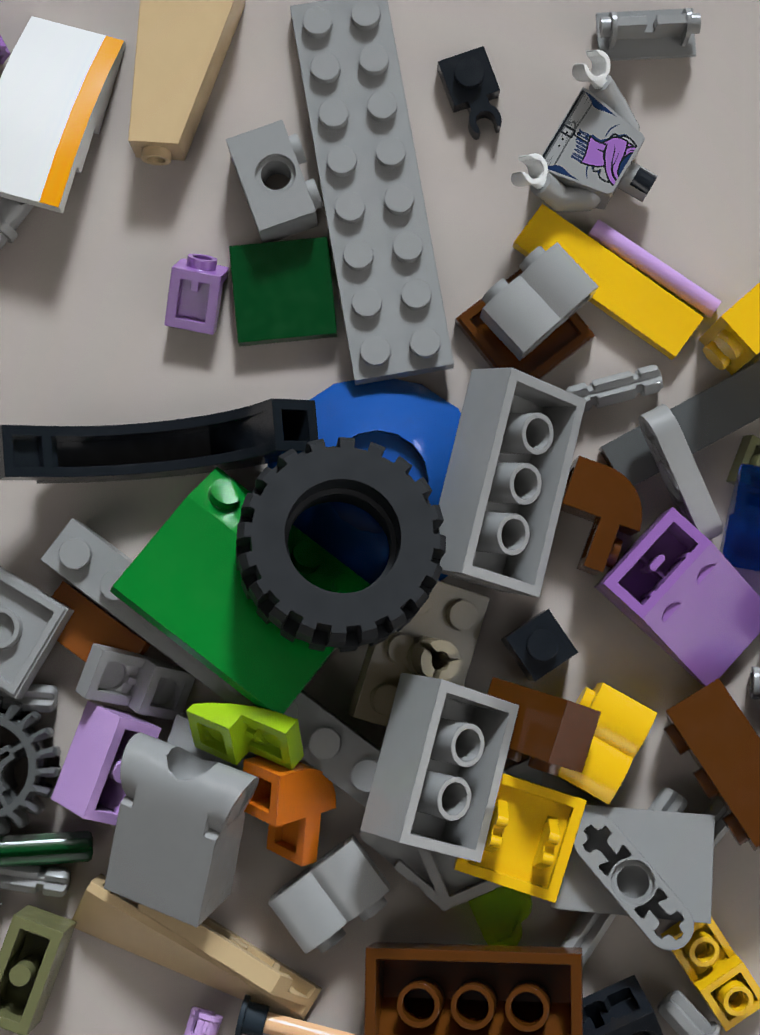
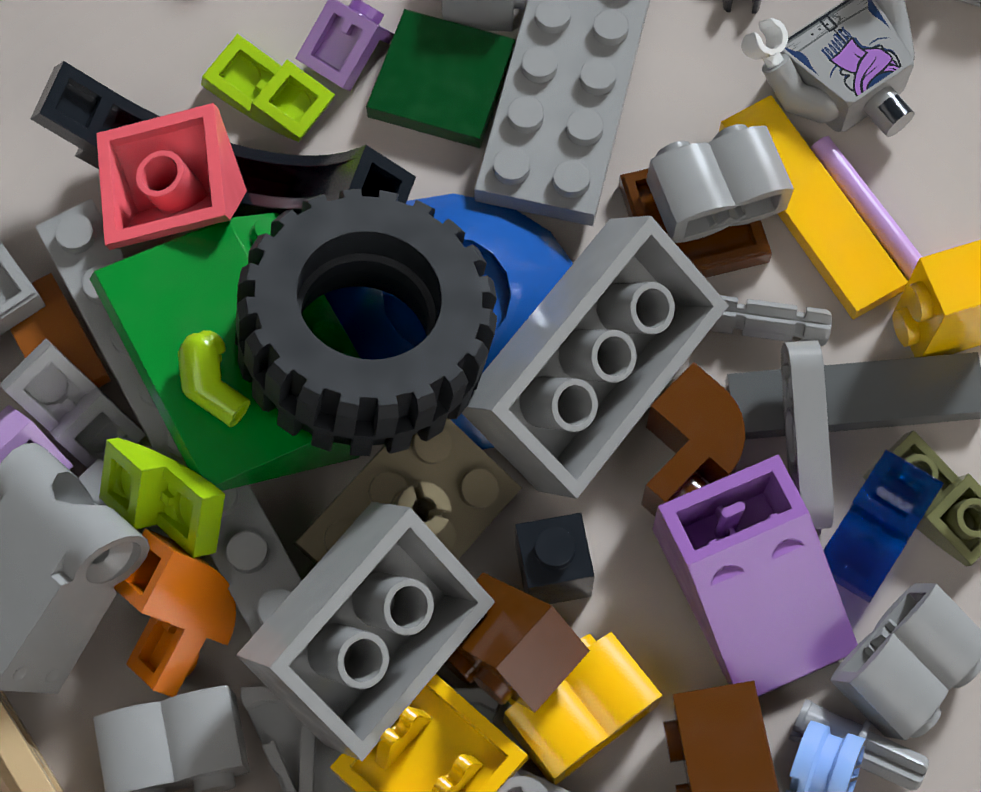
camera: 25 degrees right, 15 degrees down
(126, 483) = (167, 176): none -> coral slope
(153, 358) = (265, 91): none -> lime slope
(237, 638) = (201, 378): none -> lime arm

